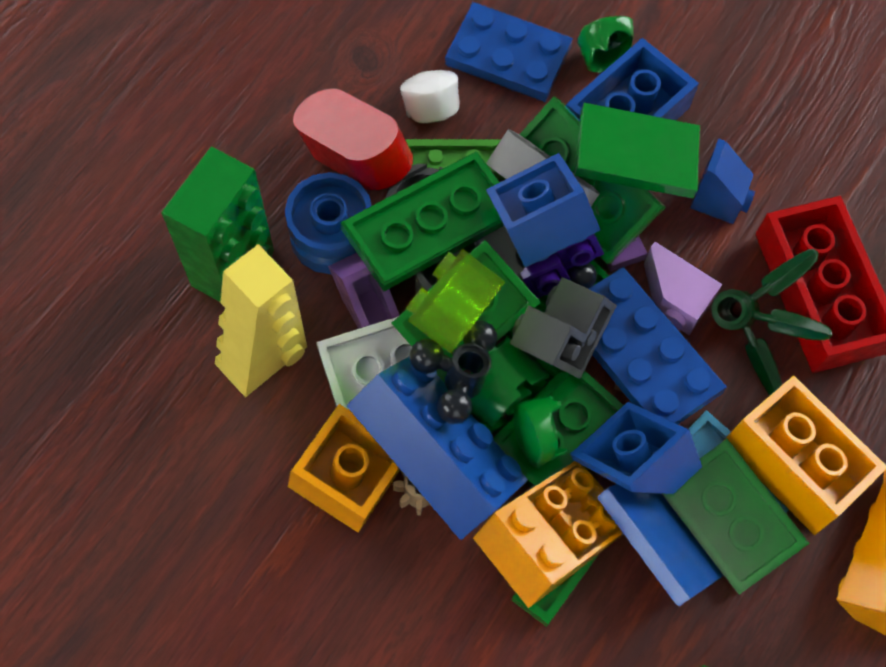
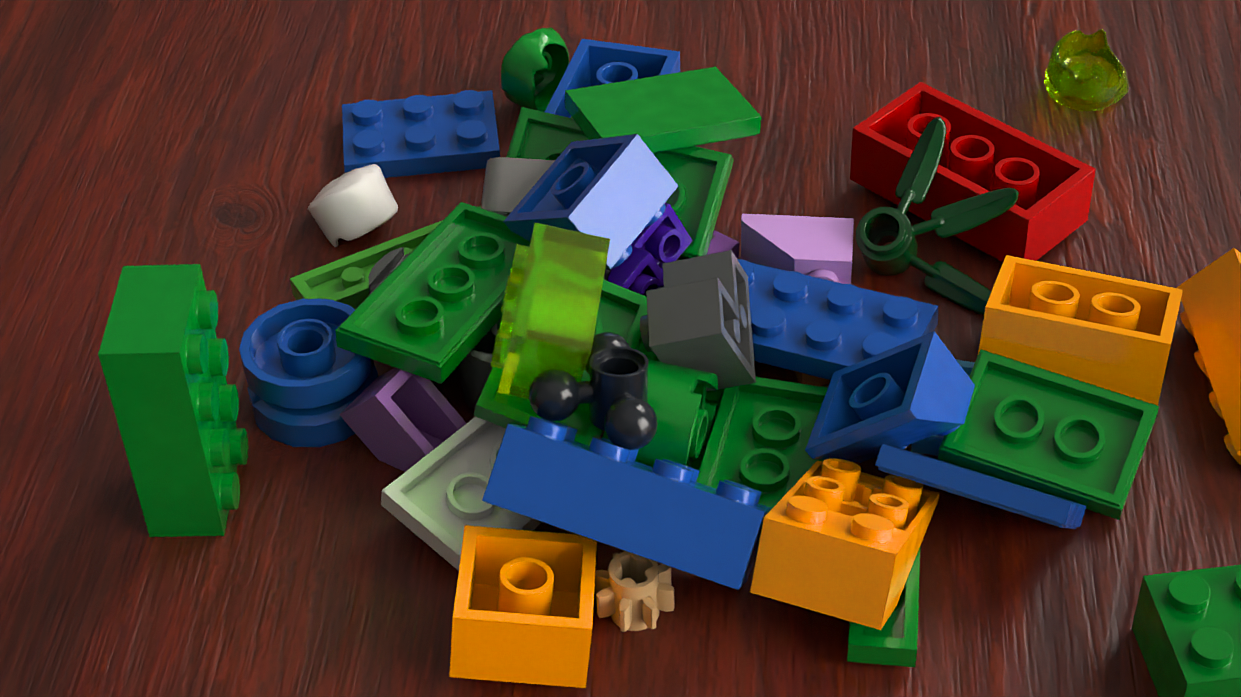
camera: 25 degrees left, 25 degrees down
(258, 321) = (294, 474): light yellow wedge -> none
(353, 138) = (290, 257): plant -> none
(537, 430) = (746, 438): green hair -> none
(724, 185) = (787, 146): blue slope -> none

